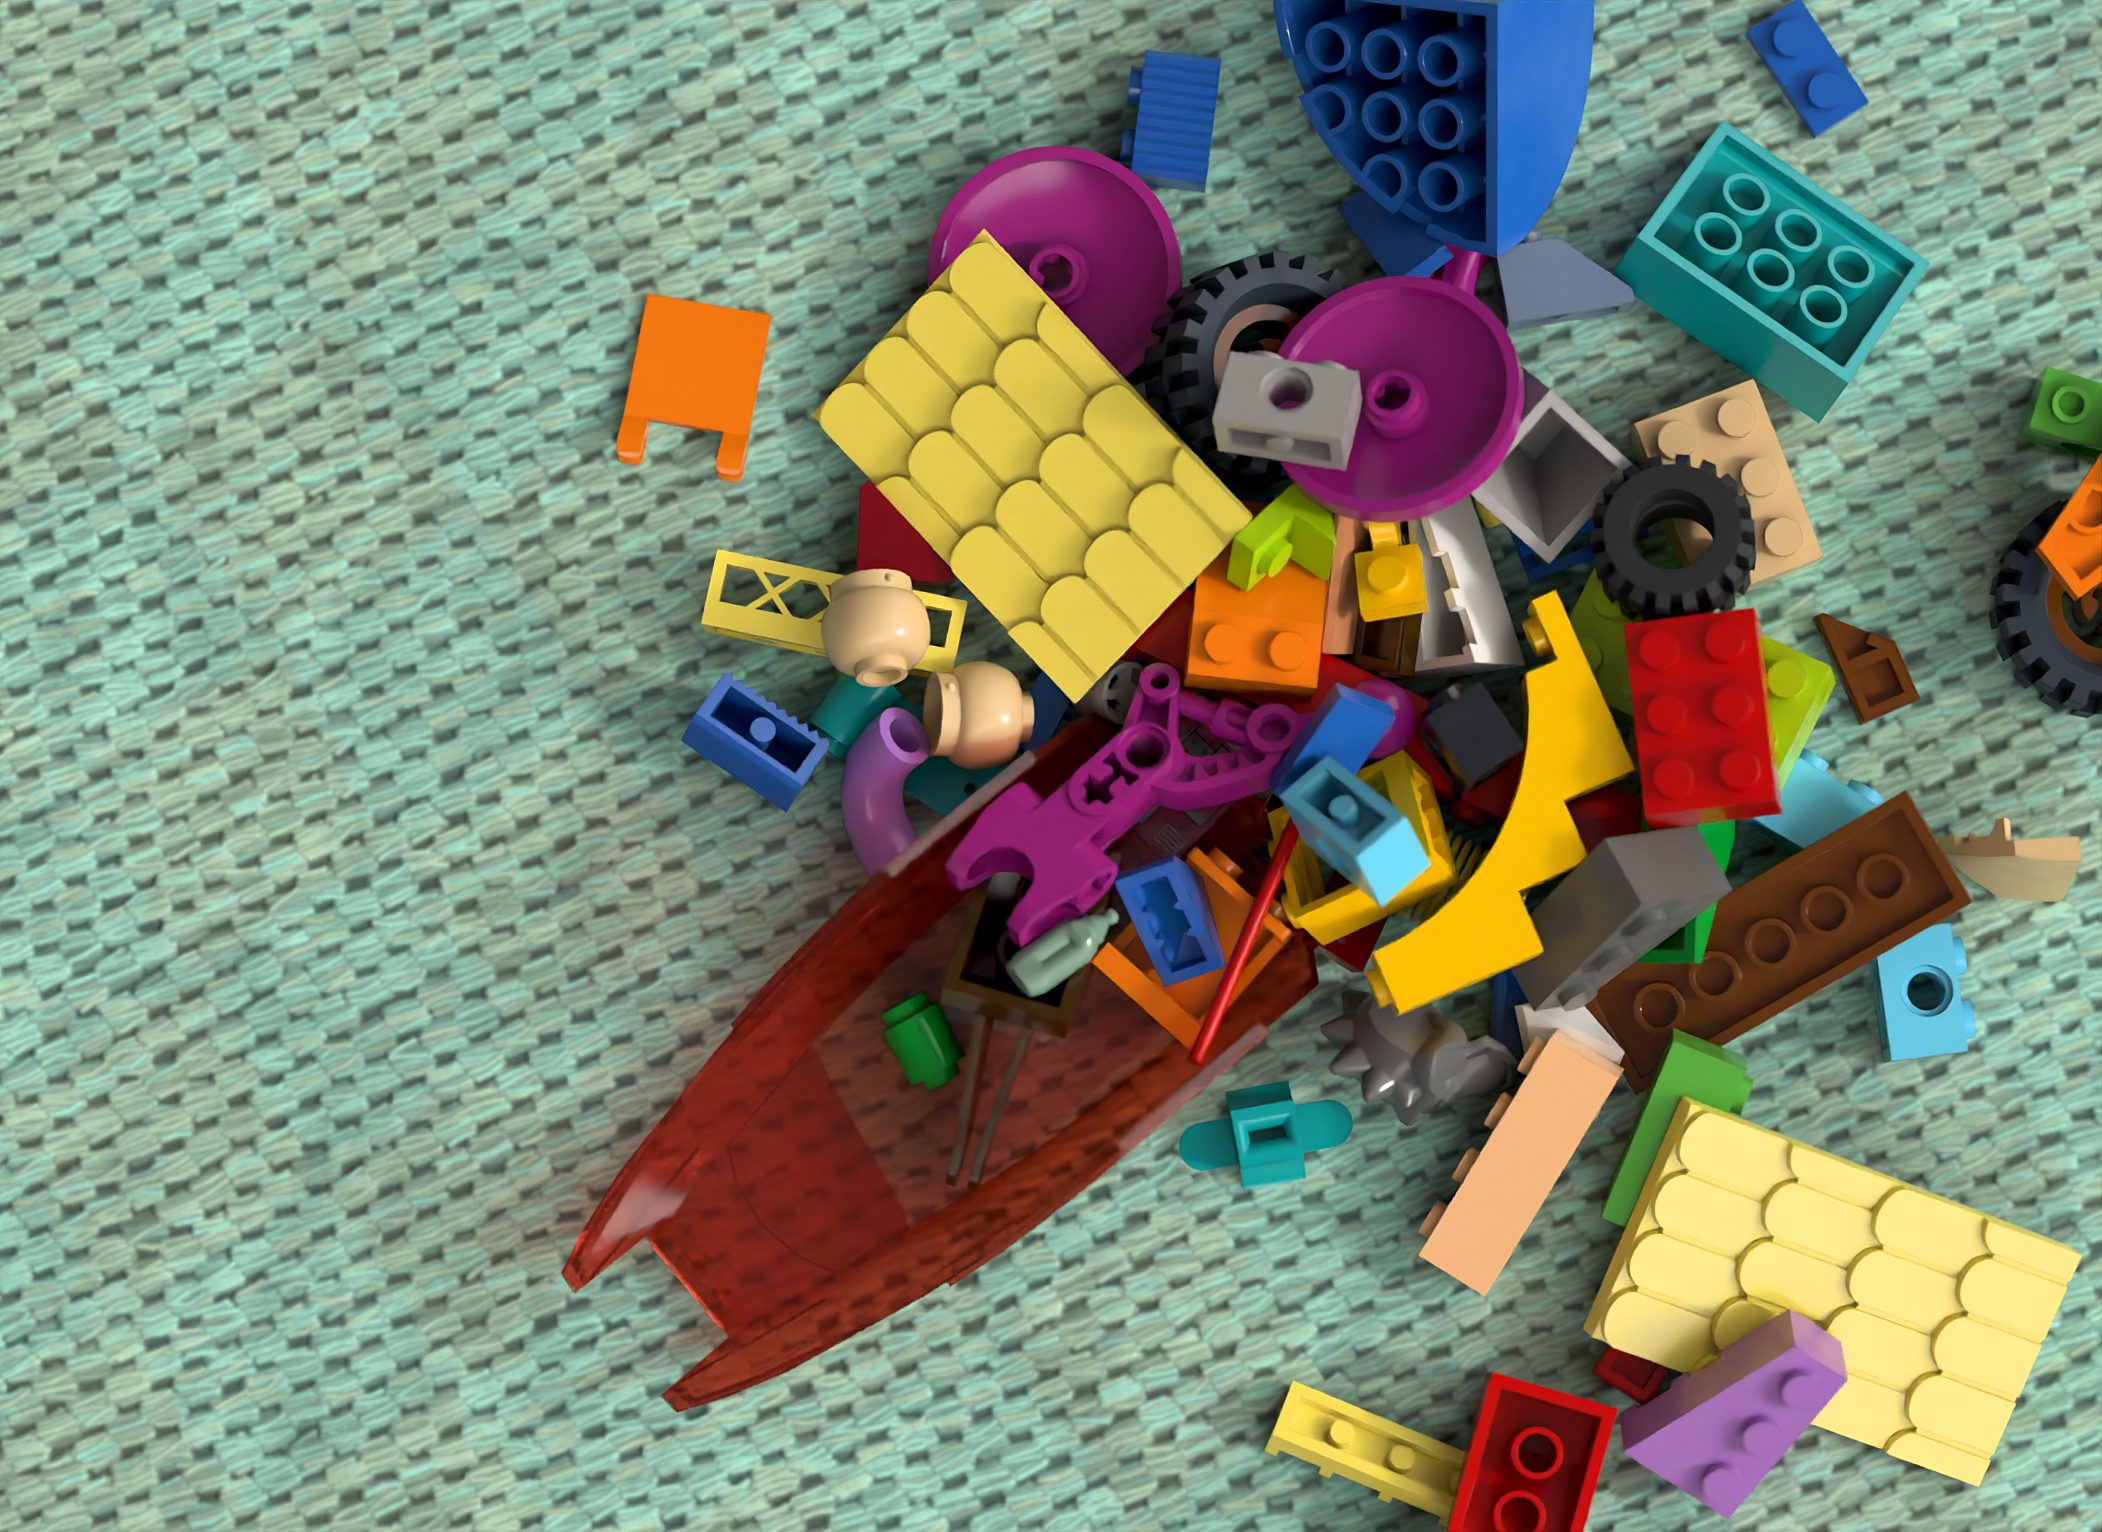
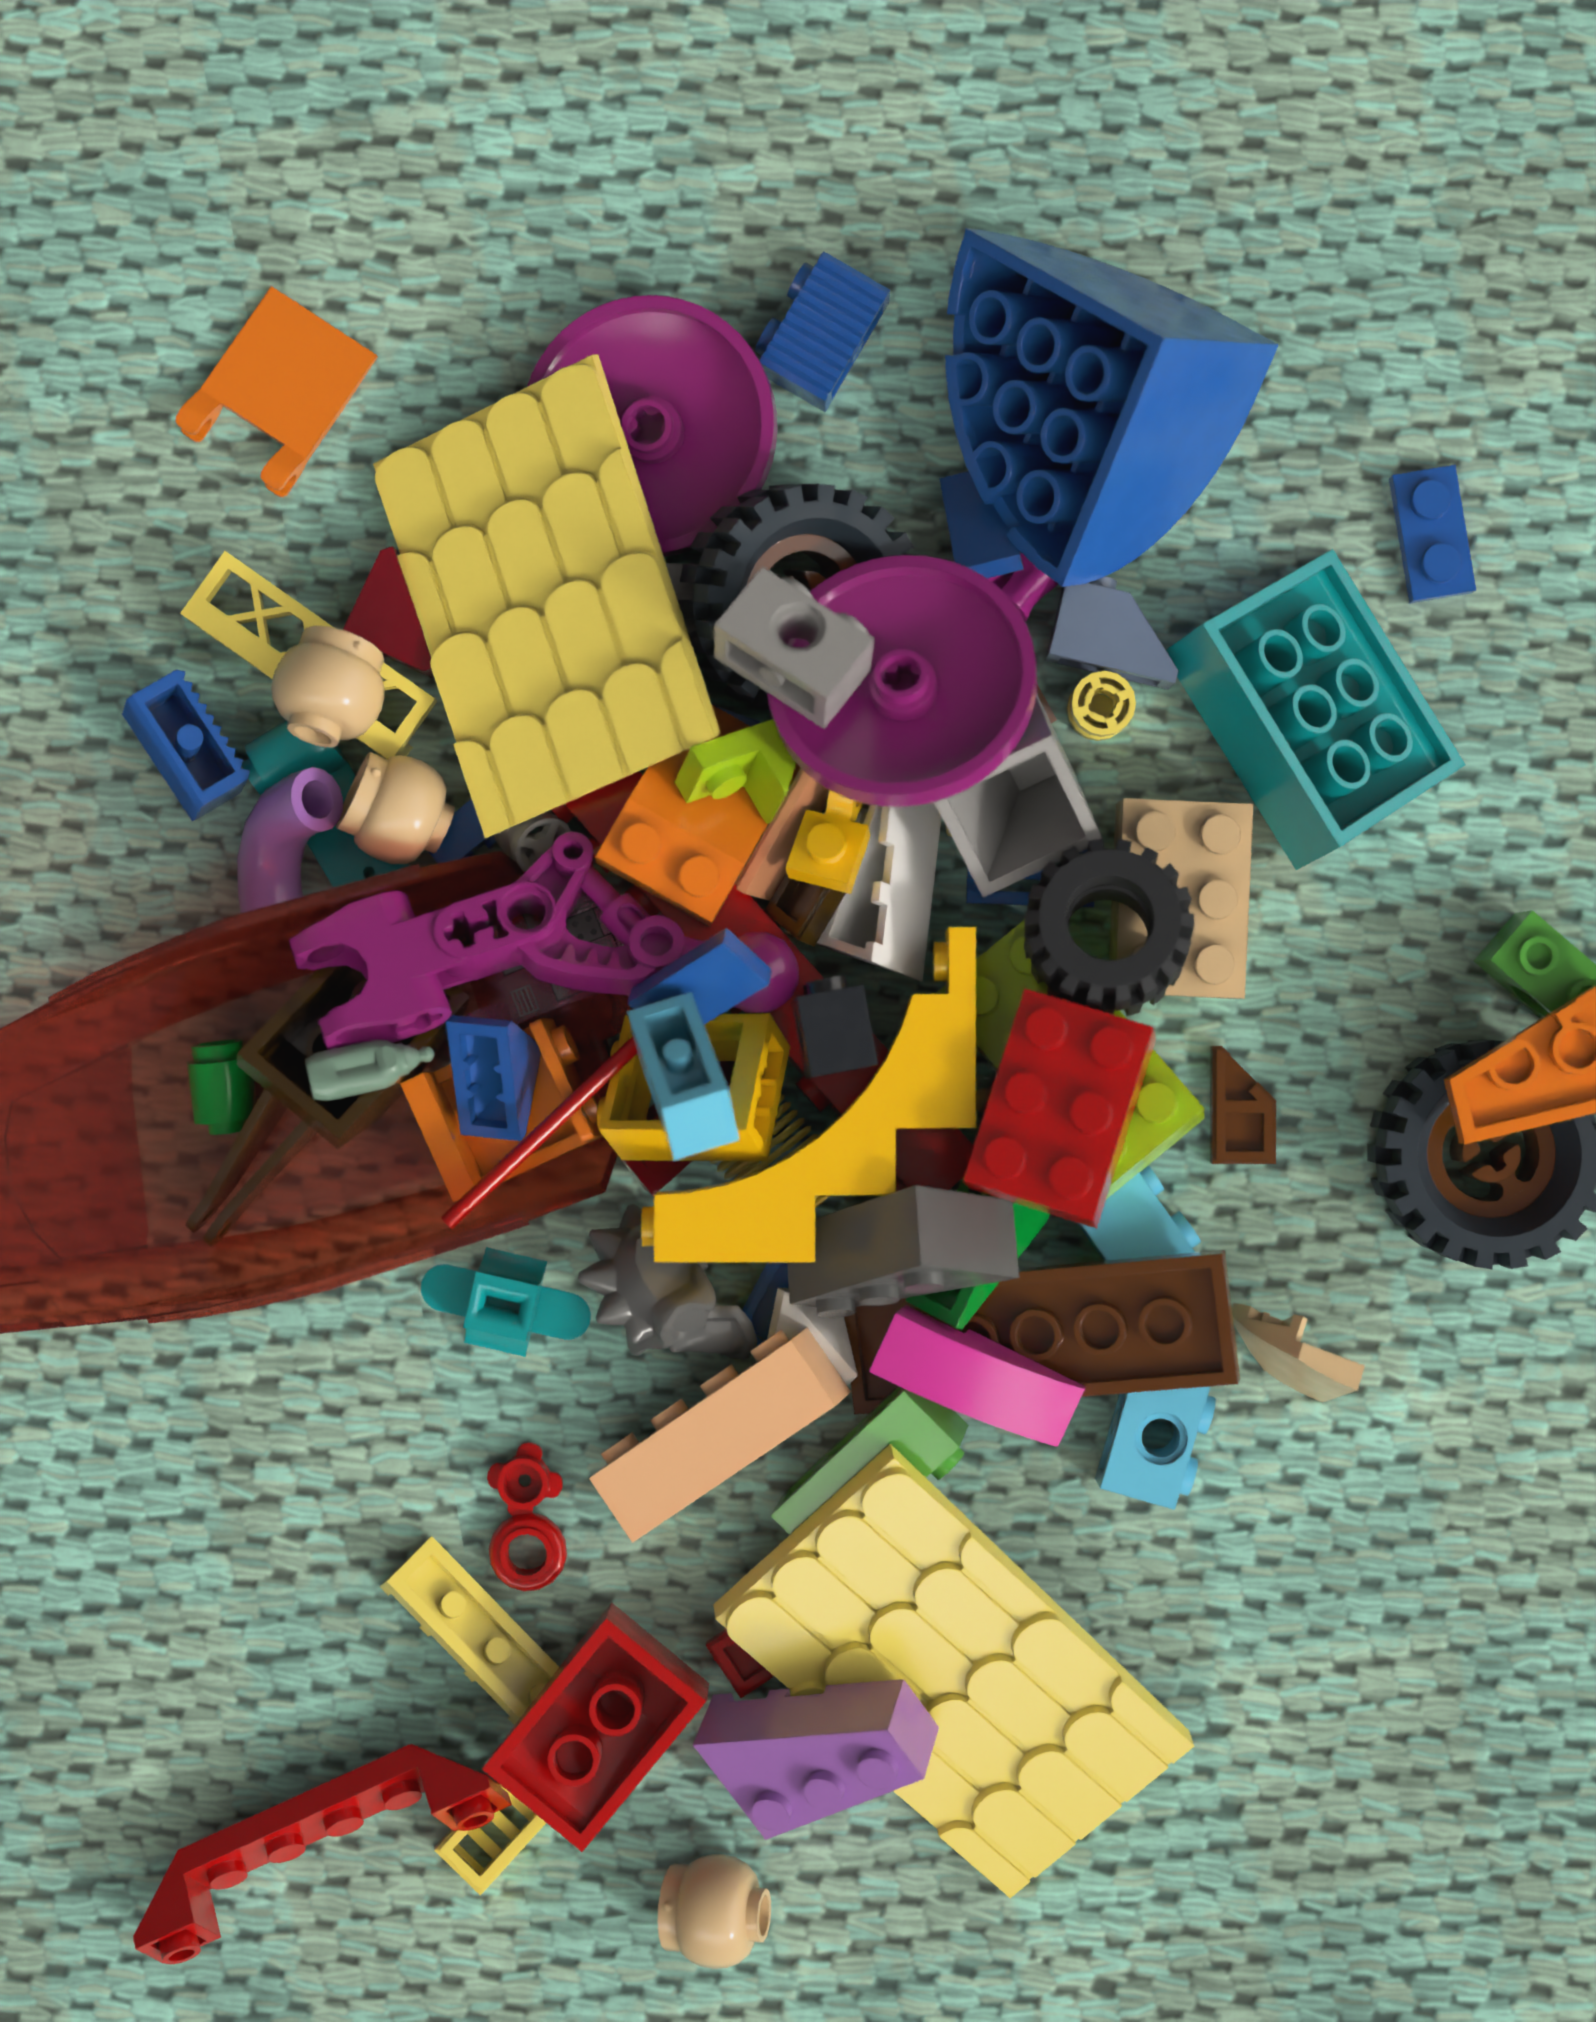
camera: 25 degrees right, 5 degrees up
(1338, 1294) = (506, 1479): none -> red plate
(1410, 1375) = (544, 1530): none -> red piece
(1568, 360) = (1091, 712): none -> light yellow wheel
(1735, 1002) = (976, 1377): none -> dark pink slope

